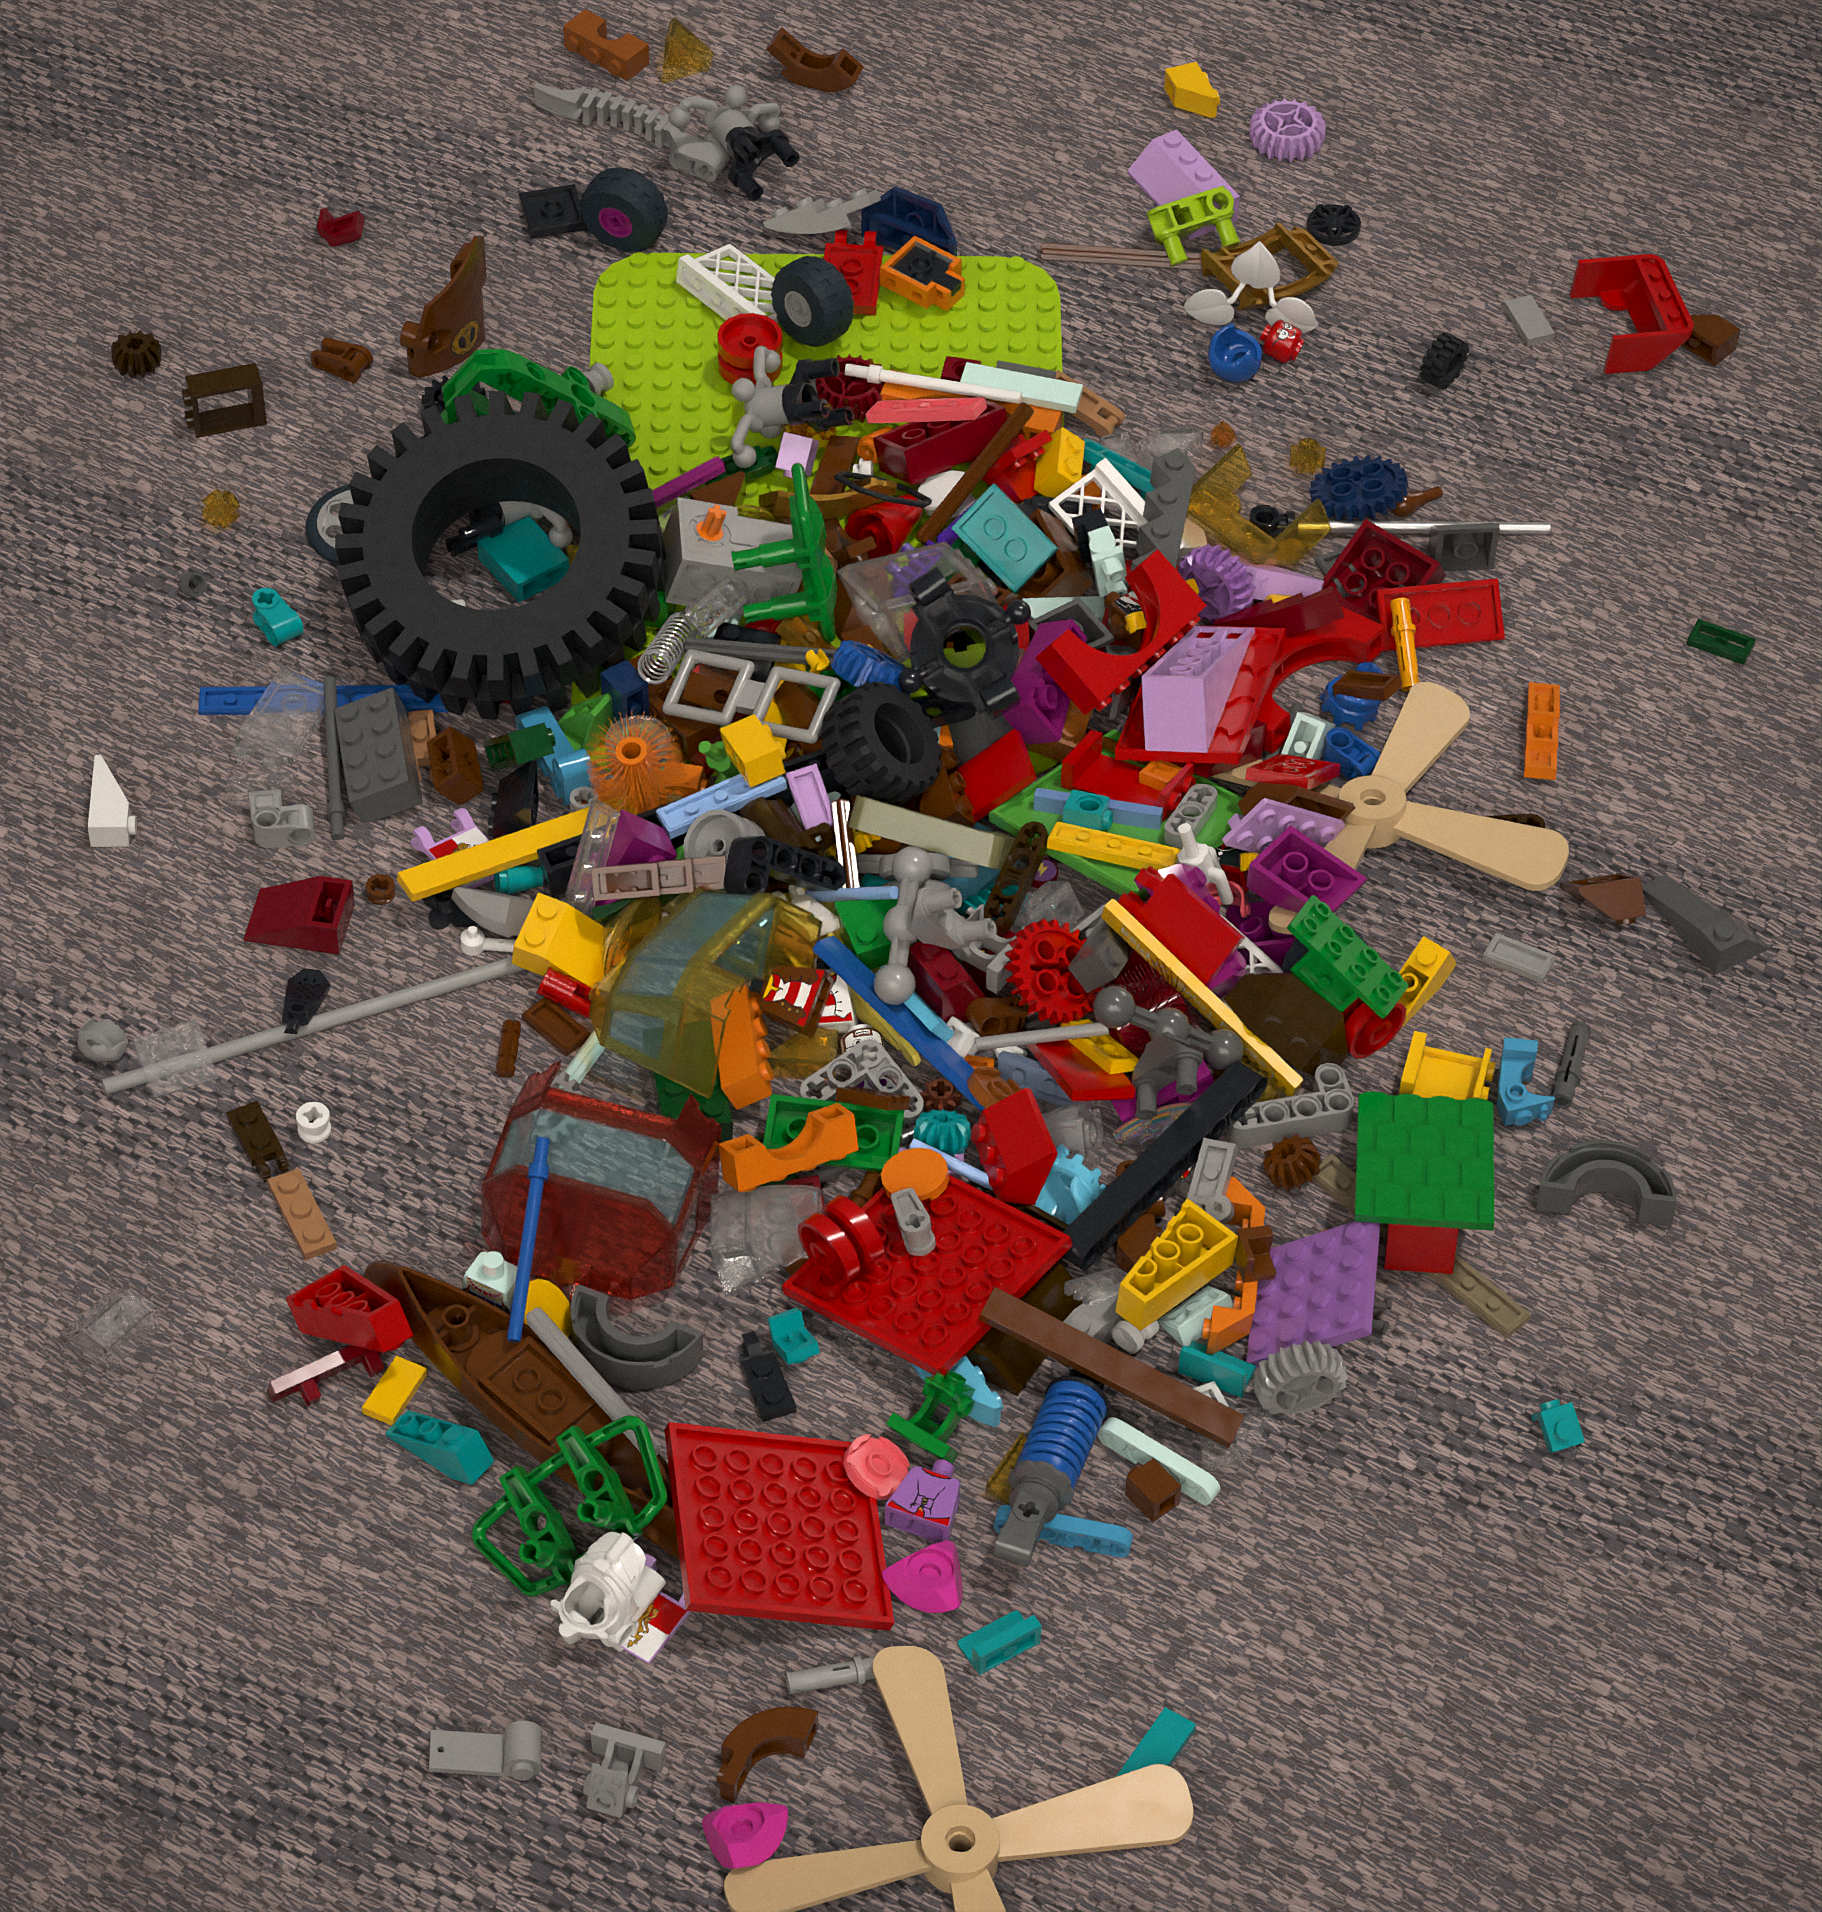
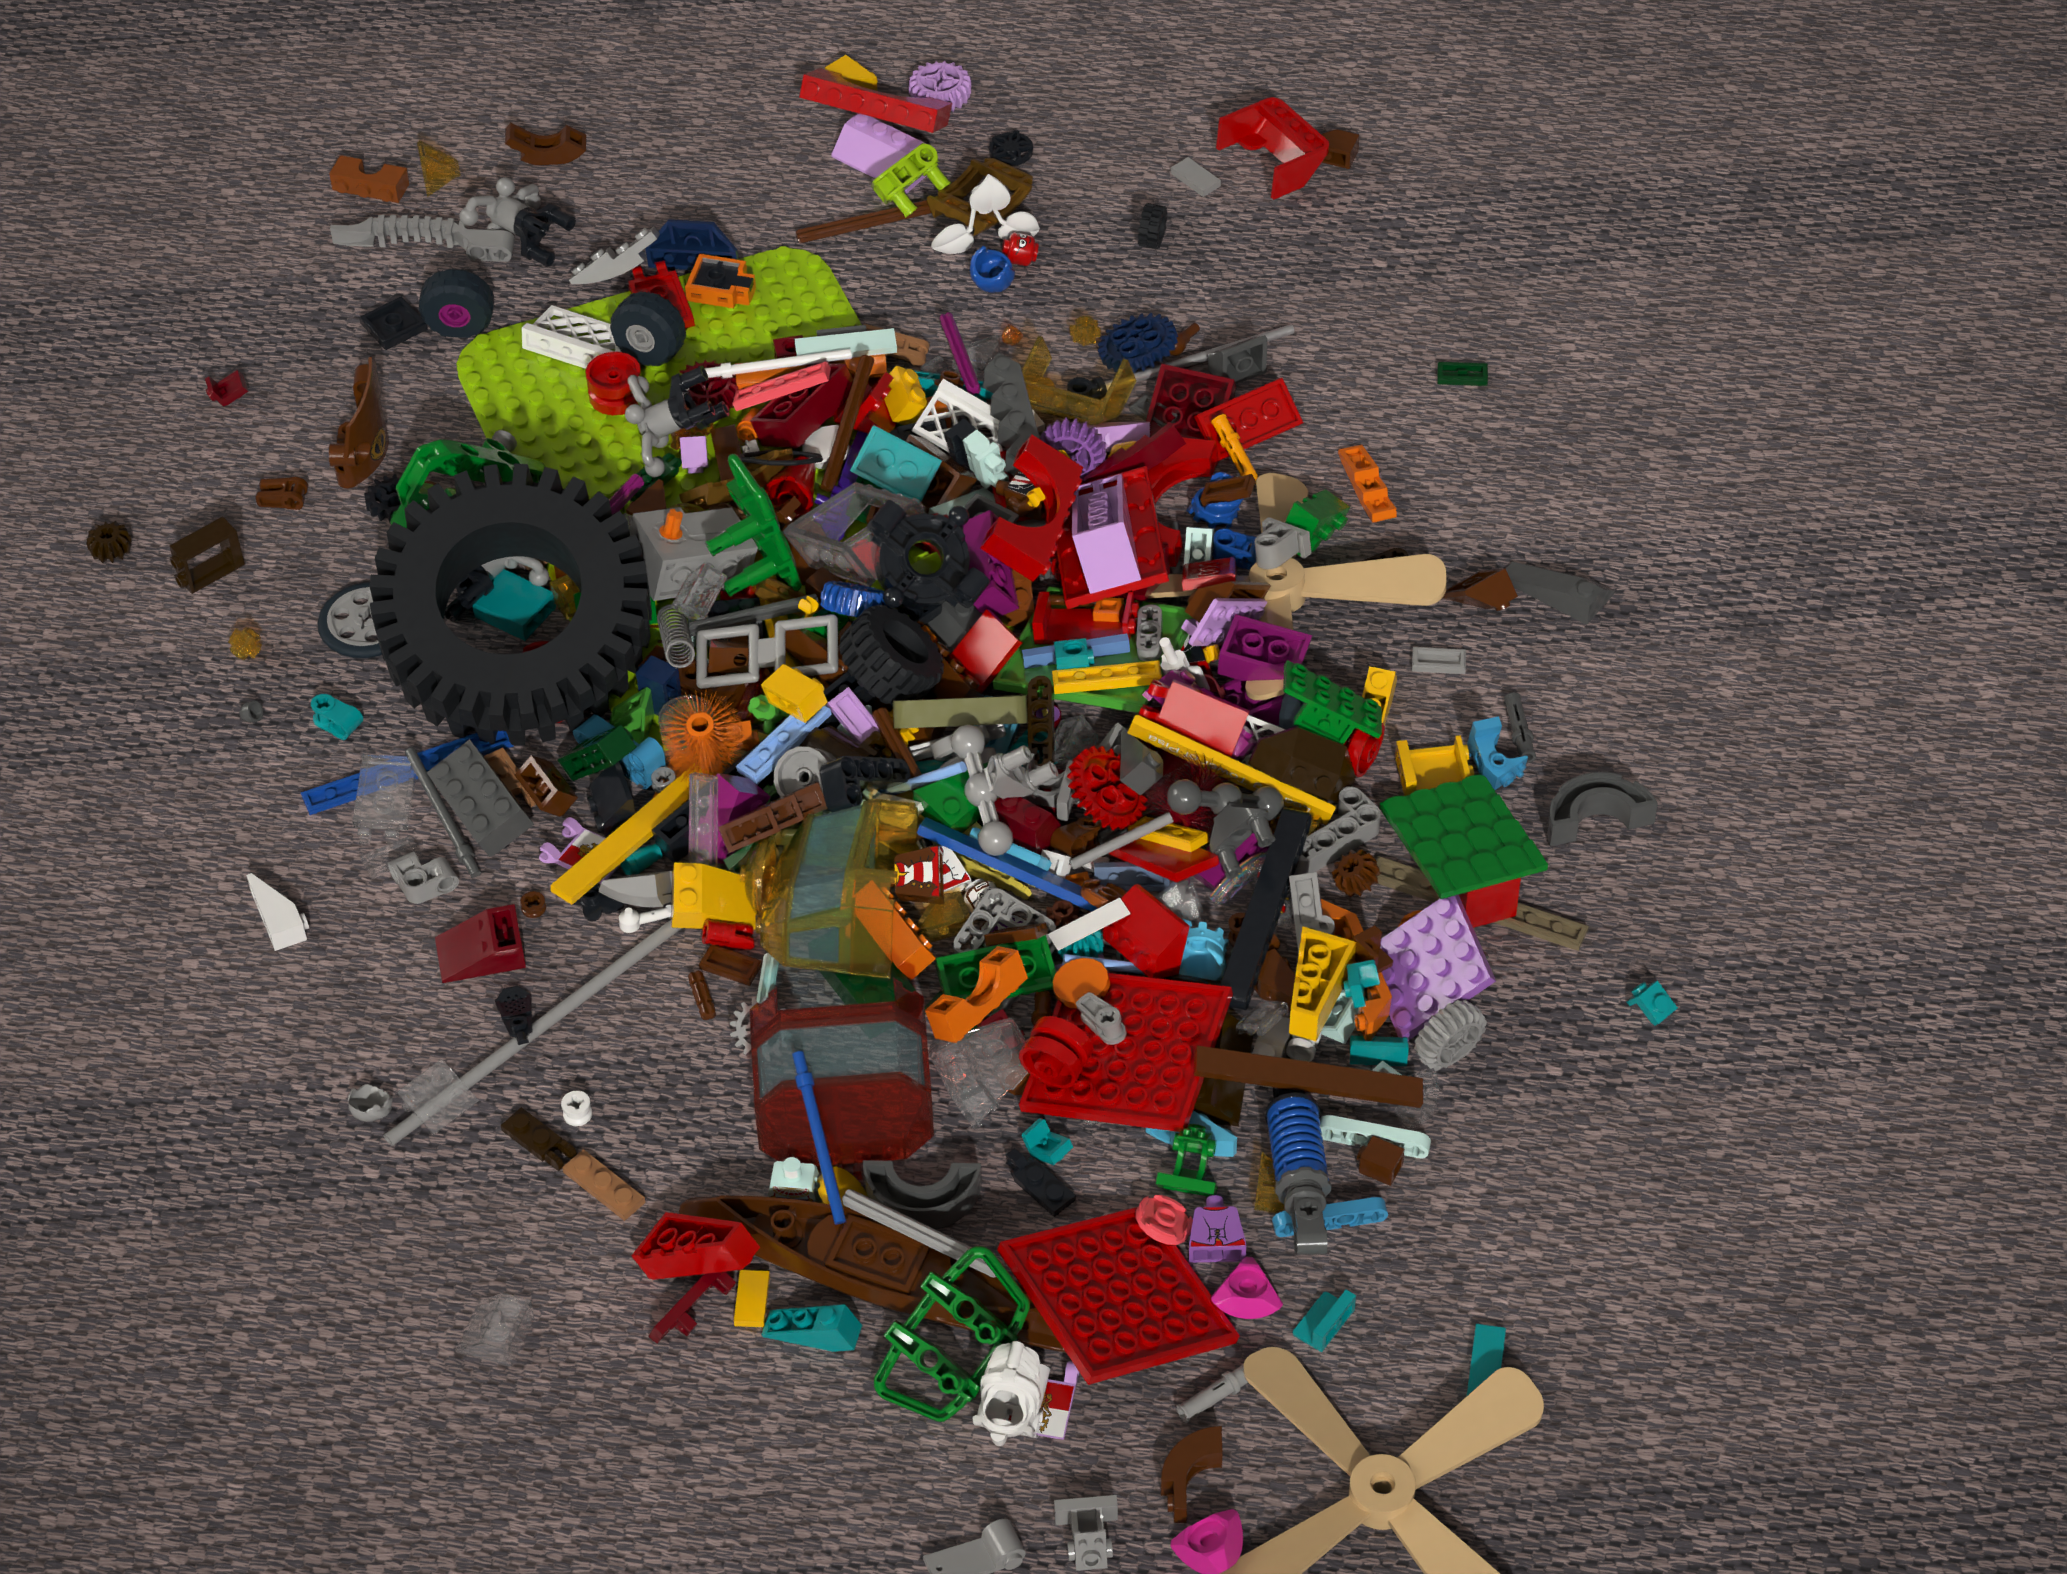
camera: 20 degrees left, 0 degrees up
(956, 1114) = (1089, 924): none -> white sticker
(1120, 461) = (950, 376): none -> reddish brown plate
(1146, 437) = (960, 353): none -> magenta axle
(1155, 96) = (832, 90): none -> red arch
(1221, 1278) = (1360, 976): none -> teal bracket
(1391, 764) = (1280, 543): none -> light grey pin
(1449, 752) = (1319, 516): none -> green wedge

